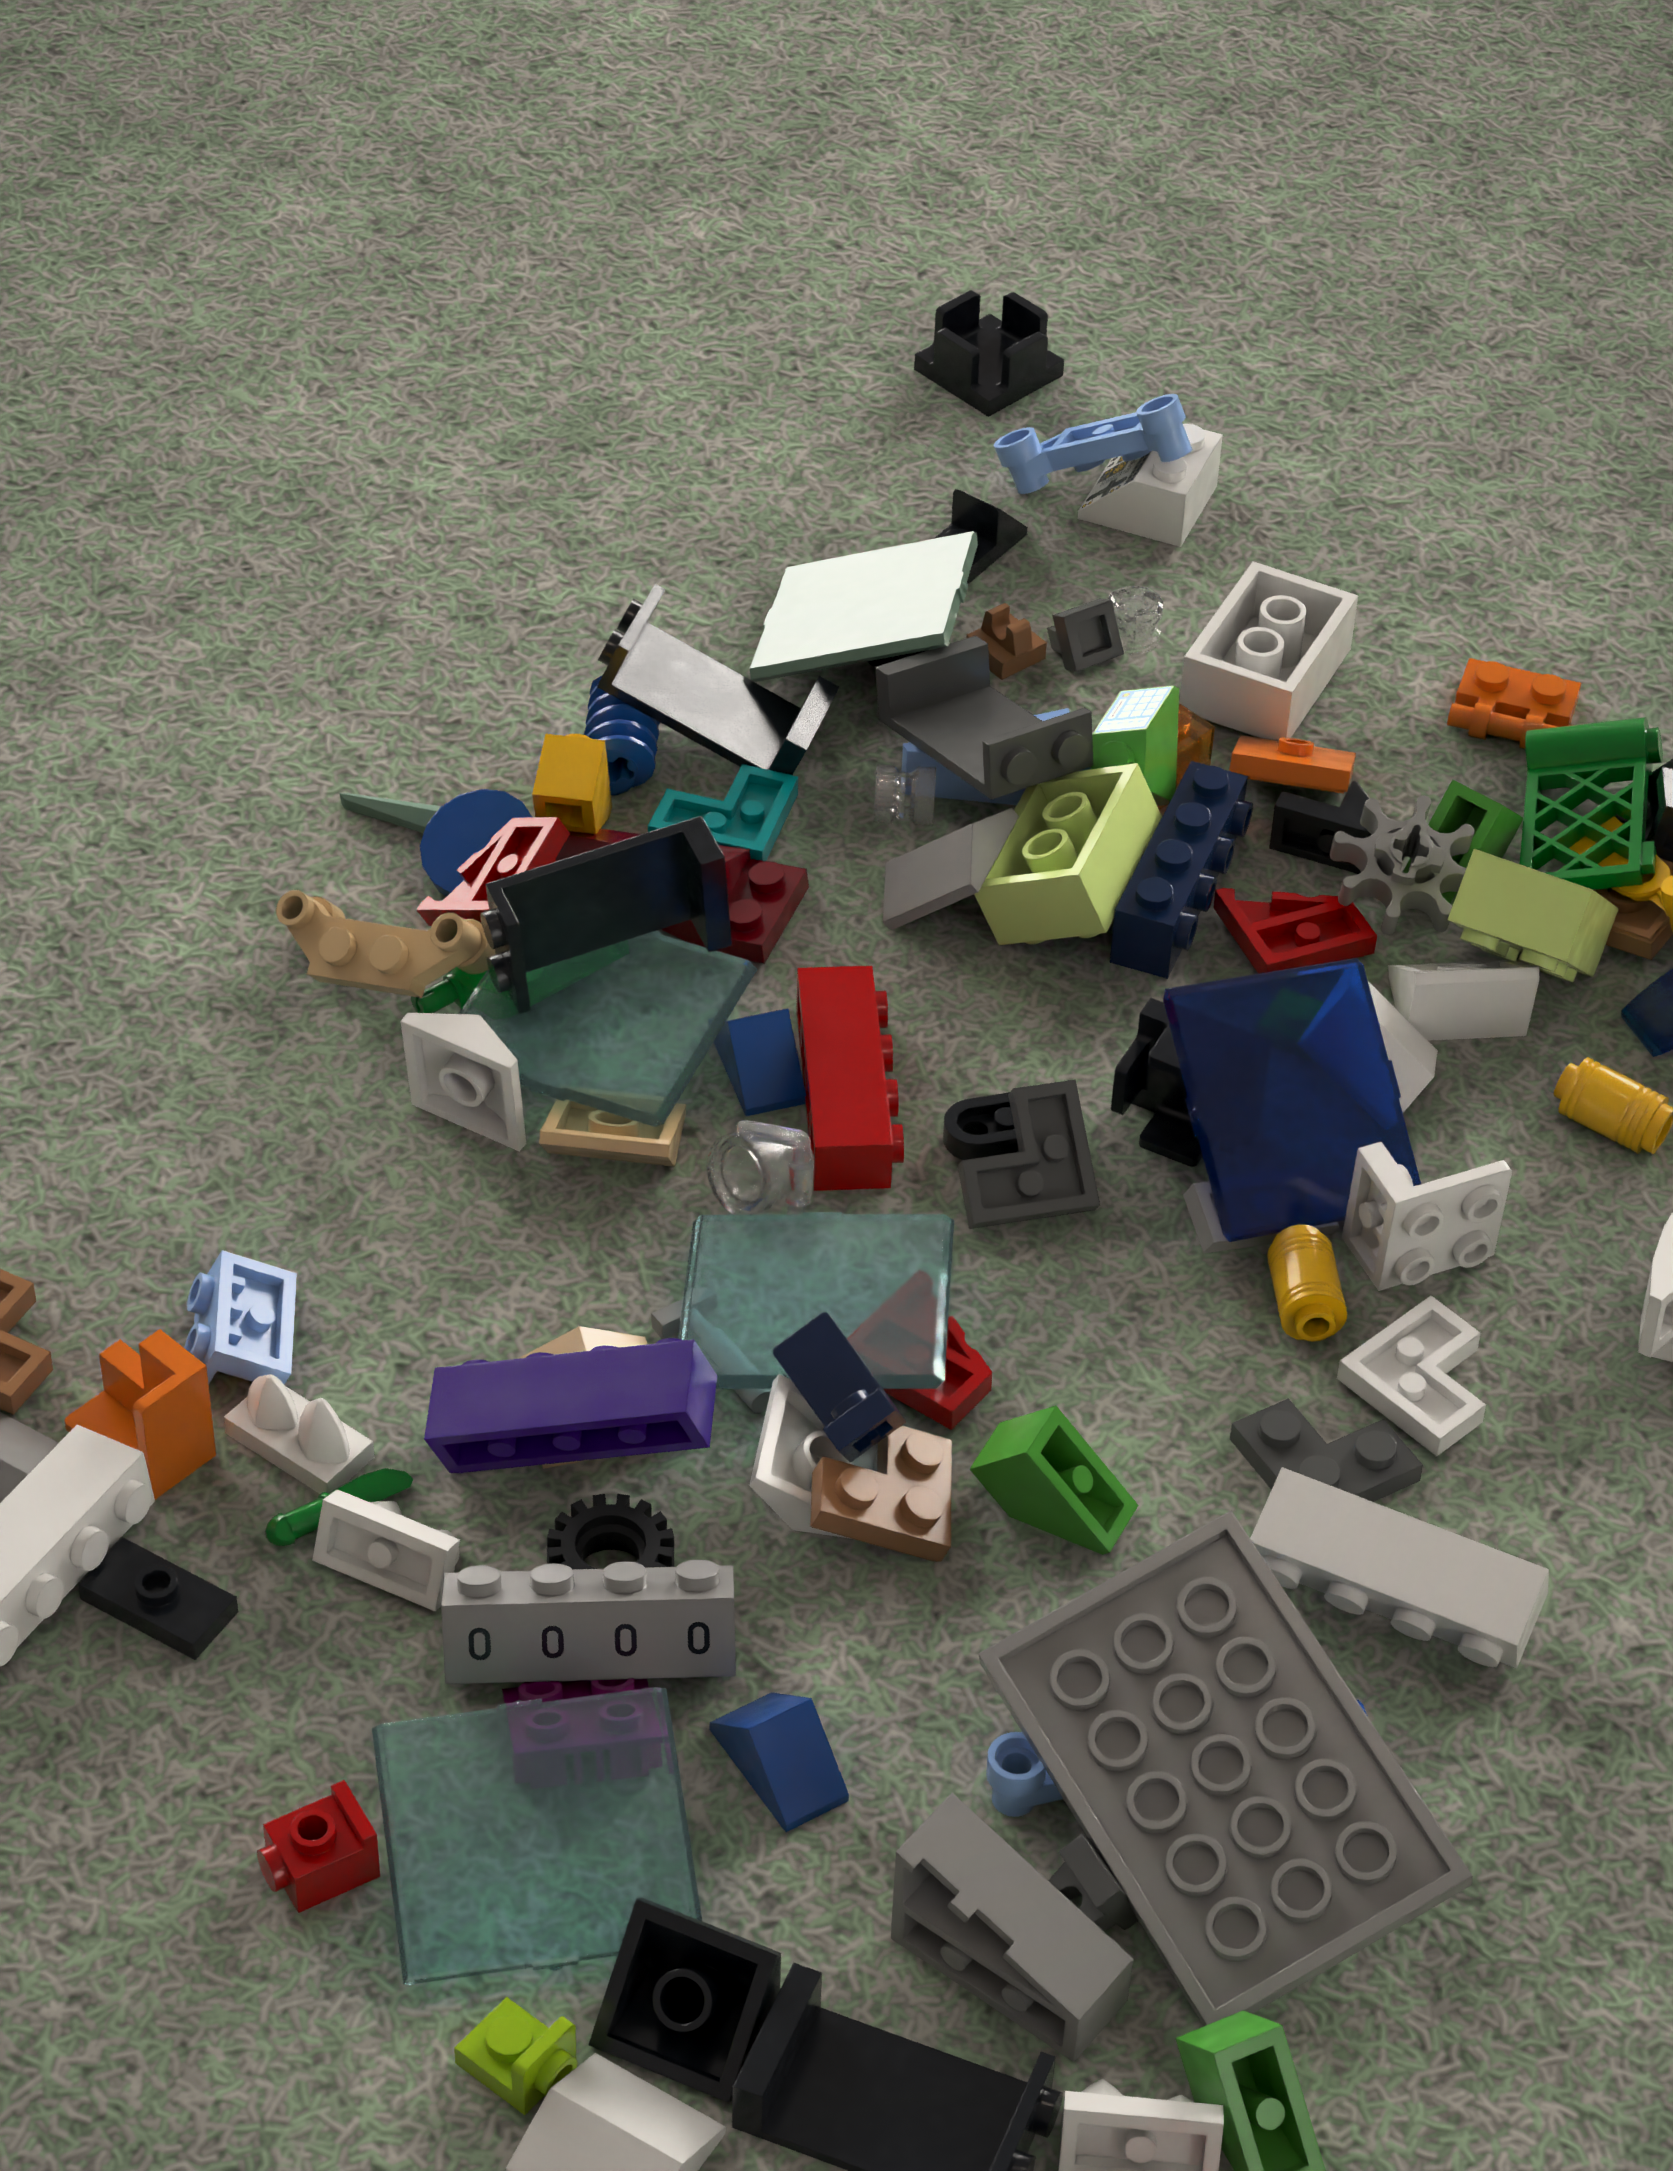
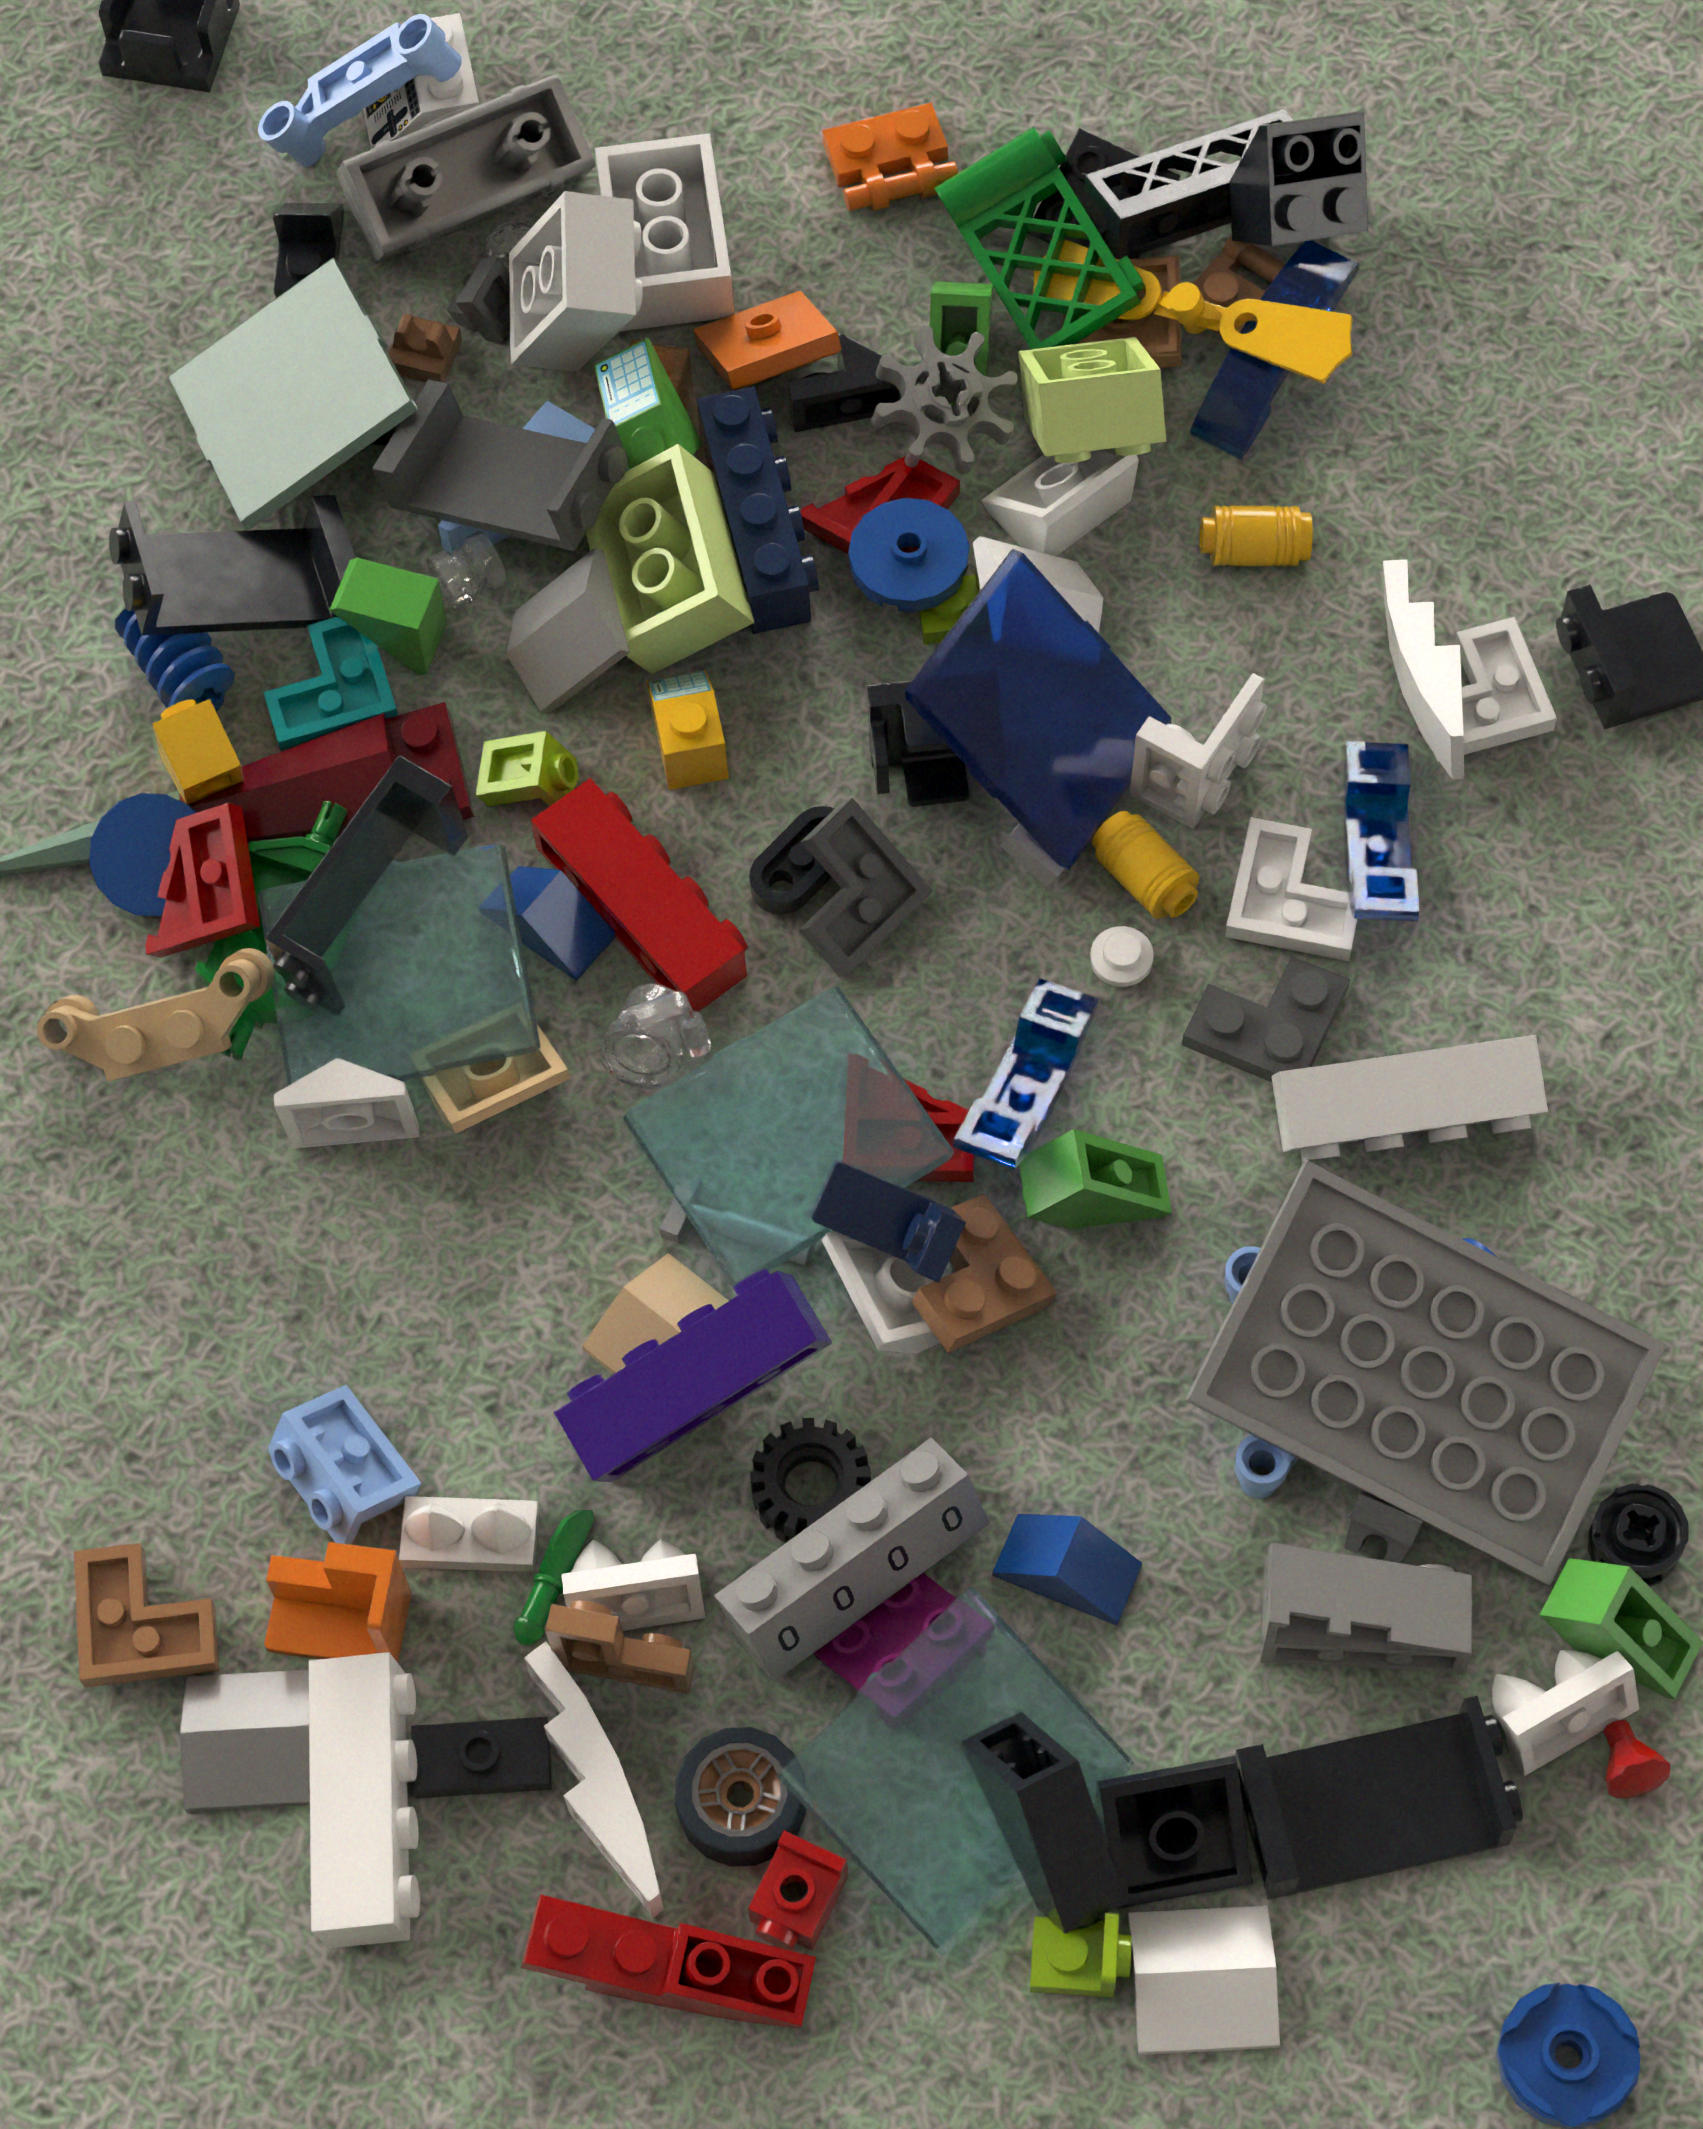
camera: 30 degrees left, 20 degrees up
(160, 1832) = (669, 1965): none -> red slope
(230, 1673) = (603, 1798): none -> white slope
(314, 1733) = (705, 1785): none -> wheel
(317, 1570) = (594, 1644): none -> medium nougat plate
(571, 1917) = (1046, 1821): none -> black slope
(817, 783) = (394, 610): none -> bright green slope
(830, 941) = (525, 770): none -> lime bracket
(988, 991) = (688, 729): none -> yellow slope
(1081, 1379) = (1029, 1076): none -> clear blue slope
(1135, 532) = (465, 168): none -> light grey piece
(1153, 622) = (573, 281): none -> white brick
(1228, 1341) = (1121, 956): none -> white plate
(1278, 941) = (909, 579): none -> blue plate
(1334, 2040) = (1639, 1530): none -> black wheel
(1547, 1369) = (1378, 832): none -> clear blue slope

